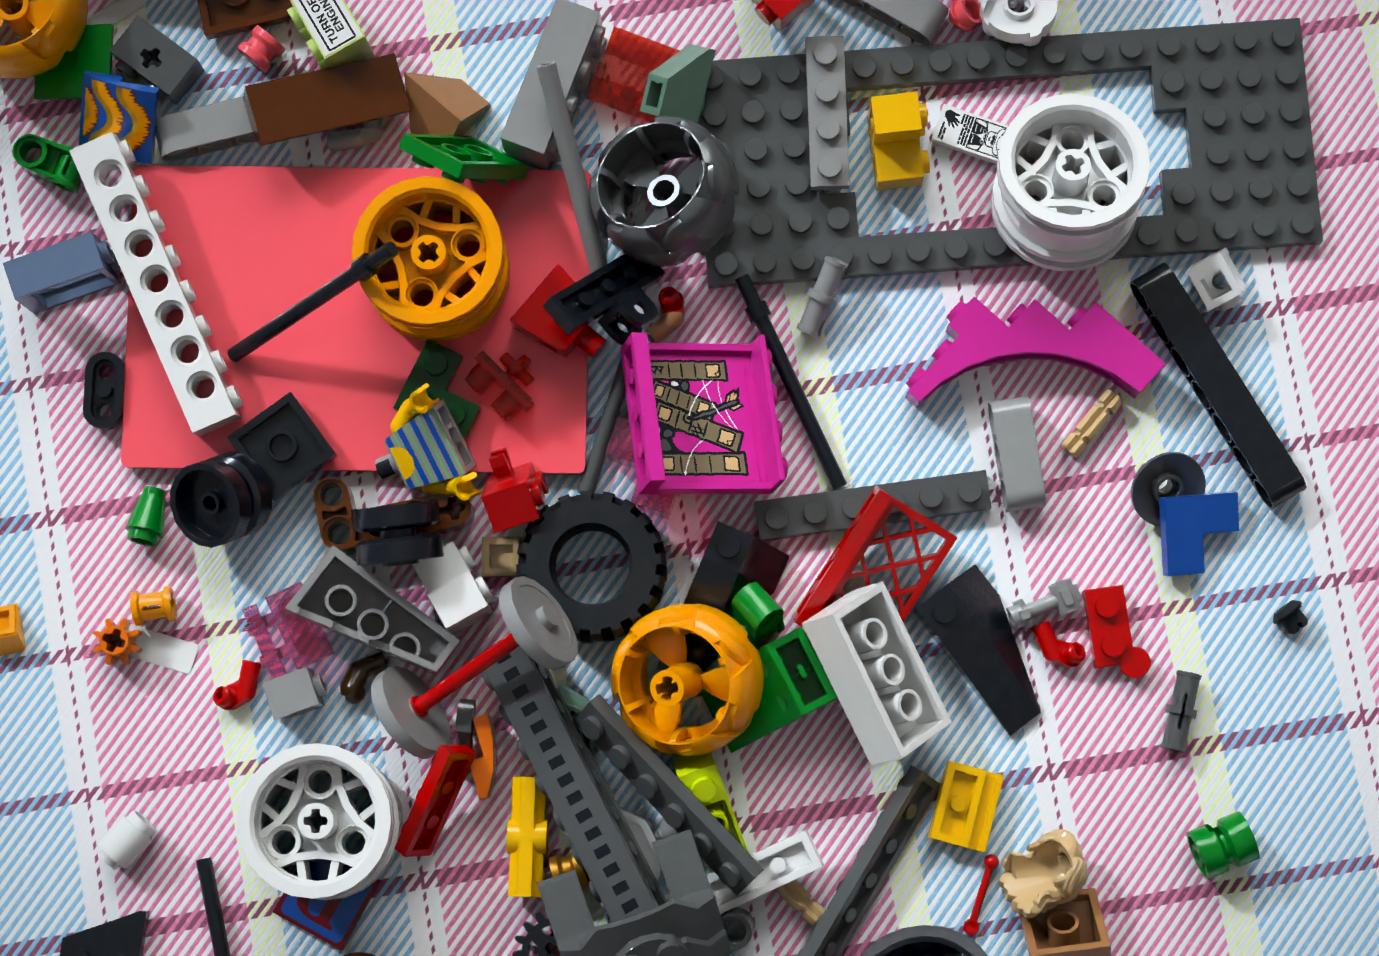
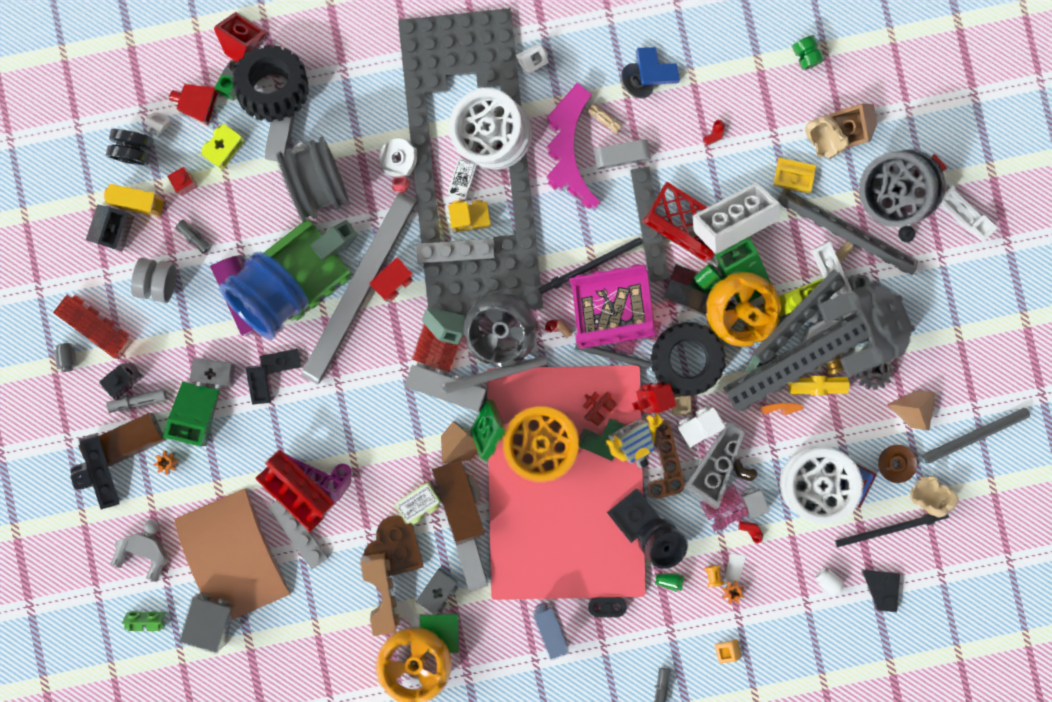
camera: 95 degrees left, 5 degrees up
(54, 164) = (491, 640): green piece -> none
(93, 163) = (619, 556): white brick -> none
(122, 109) = (468, 608): slope -> none
(261, 49) = (429, 538): coral wheel -> none
(361, 270) = (553, 475): black bar -> none
(397, 534) = (680, 453): black wheel -> none
(414, 711) = (763, 442): light grey piece -> none
(435, 800) = (805, 430): red plate -> none
(464, 722) = (771, 418): dark grey bar -> none
(538, 324) = (564, 379): red torso -> none
(610, 293) = (555, 355): black plate -> none
(822, 296) = (547, 250): light grey pin -> none
(971, 925) = (849, 172): red hinge -> none
(977, 638) = (712, 171): black wedge -> none
(1063, 597) = (691, 130): light grey bar -> none
(1111, 632) = (707, 107): red hinge -> none
(1176, 738) = (744, 73): dark grey pin -> none
(1218, 385) = (584, 58): black beam -> none
(1291, 617) = (695, 22): black piece -> none

